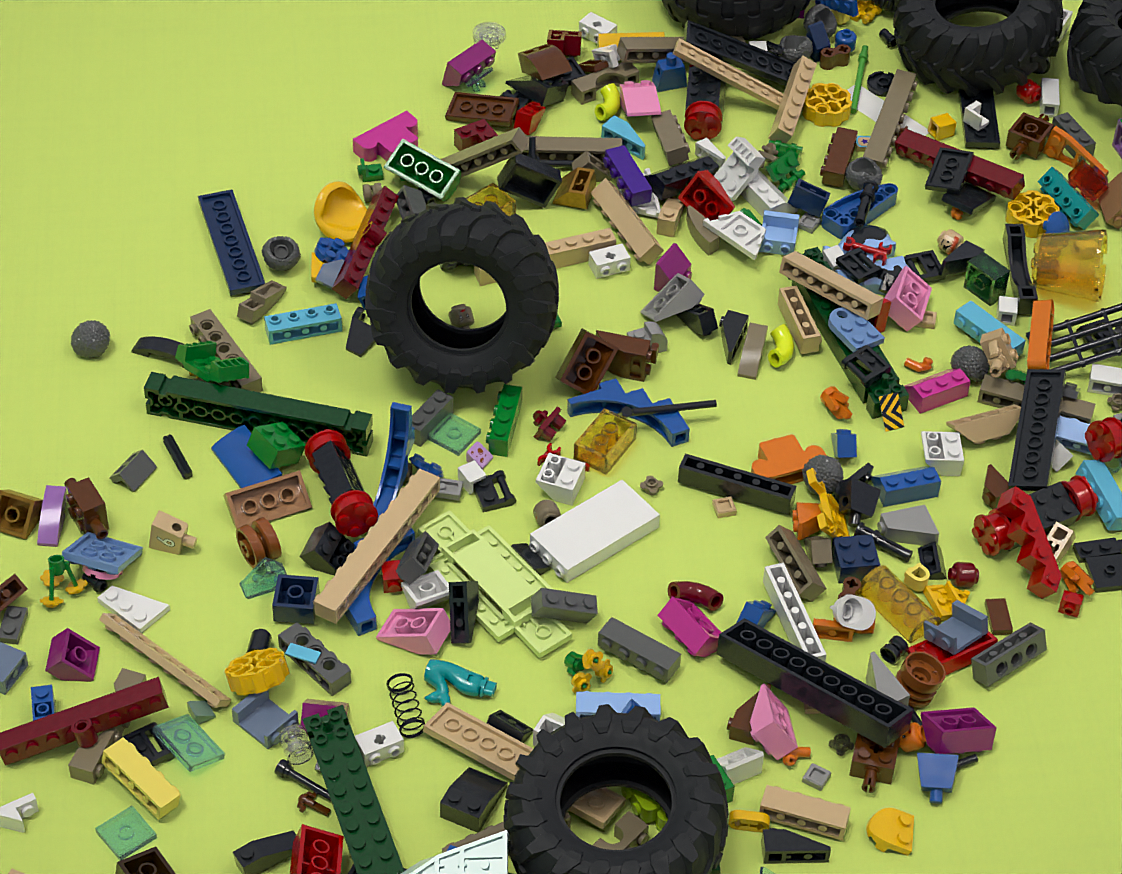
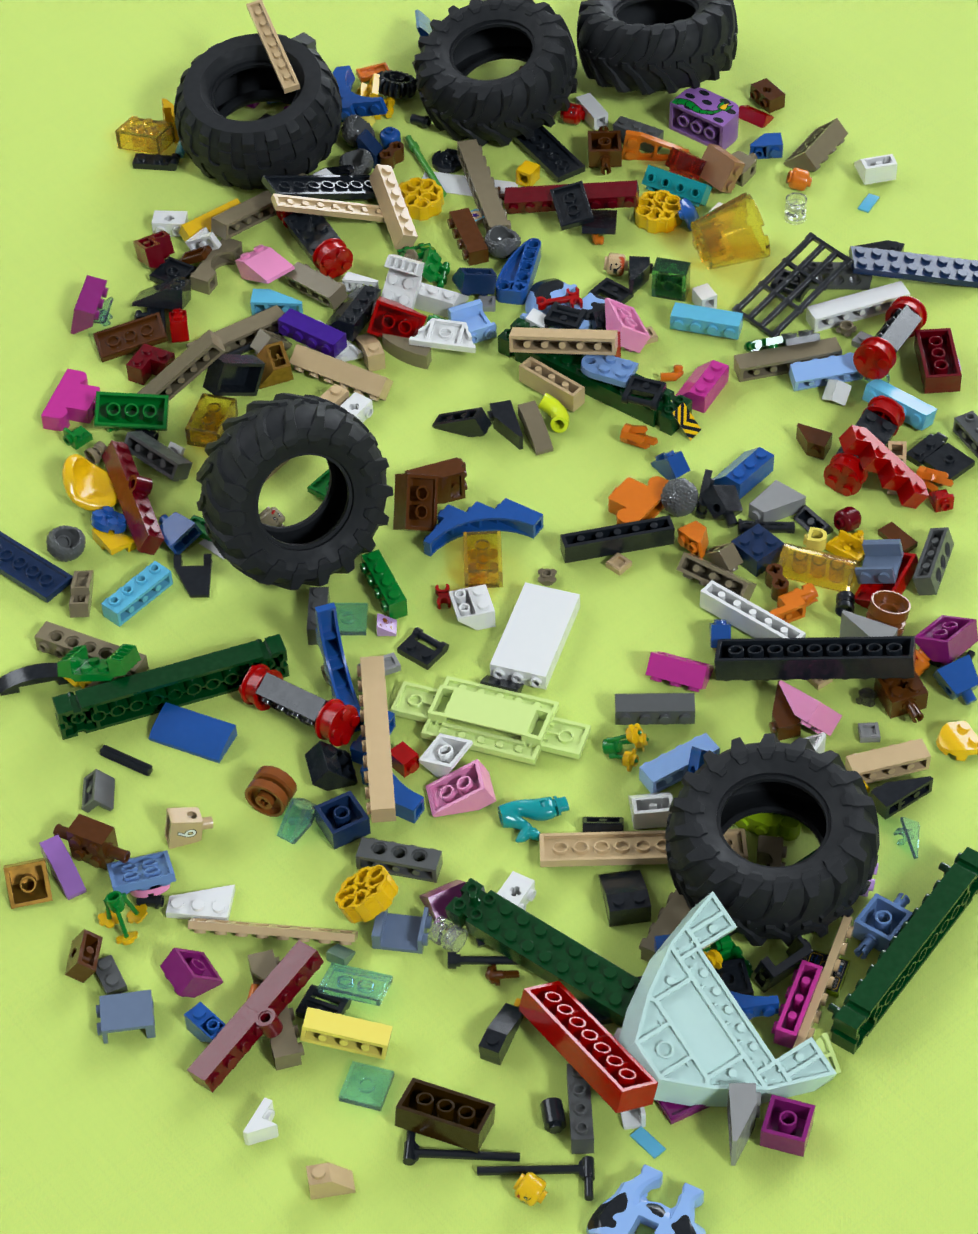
camera: 30 degrees left, 0 degrees up
(259, 640) = (340, 870): black brick -> none
(268, 499) = (241, 754): medium nougat slope -> none
(276, 445) = (213, 703): green brick -> none
(302, 653) = (391, 858): medium azure window -> none
(329, 273) = (125, 539): sand blue slope -> none
(406, 721) = (527, 863): black piece -> none
(417, 558) = (417, 732): dark grey brick -> none
(433, 468) = (354, 656): blue dish -> none
(463, 610) = (491, 754): black slope -> none
(470, 474) = (396, 643): white panel -> none
(490, 32) = (75, 270): clear tile -> none
(543, 62) = (157, 270): reddish brown piece -> none
(545, 421) = (419, 570): dark red hips -> none
(545, 512) = (485, 642): dark tan head -> none
(564, 605) = (570, 705): dark grey brick -> none
(611, 102) = (237, 279): neon yellow cylinder -> none
(627, 411) = (486, 524): black bar -> none
(651, 332) = (443, 453): light grey brick -> none
(669, 73) = (268, 231): blue torso -> none
(669, 265) = (417, 396): magenta slope -> none
(674, 298) = (438, 416): light grey slope -> none
(696, 593) = (659, 641): dark red cylinder -> none
(791, 758) = (839, 729): orange arm -> none
(831, 519) = (708, 521): yellow wing -> none
(854, 612) = (798, 589): white piece -> none
(867, 197) = (524, 257): black pin -> none
(943, 452) = (754, 431): white slope -> none
(971, 361) = (714, 349): dark grey hair -> none
(973, 117) = (550, 154): white panel -> none
(987, 425) = (767, 393): tan wedge -> none
(998, 351) = (733, 332): tan brick -> none
(1015, 251) = (668, 243): black arch -> none
(1037, 429) = (815, 377): black plate -> none
(1041, 334) = (750, 304): orange beam -> none

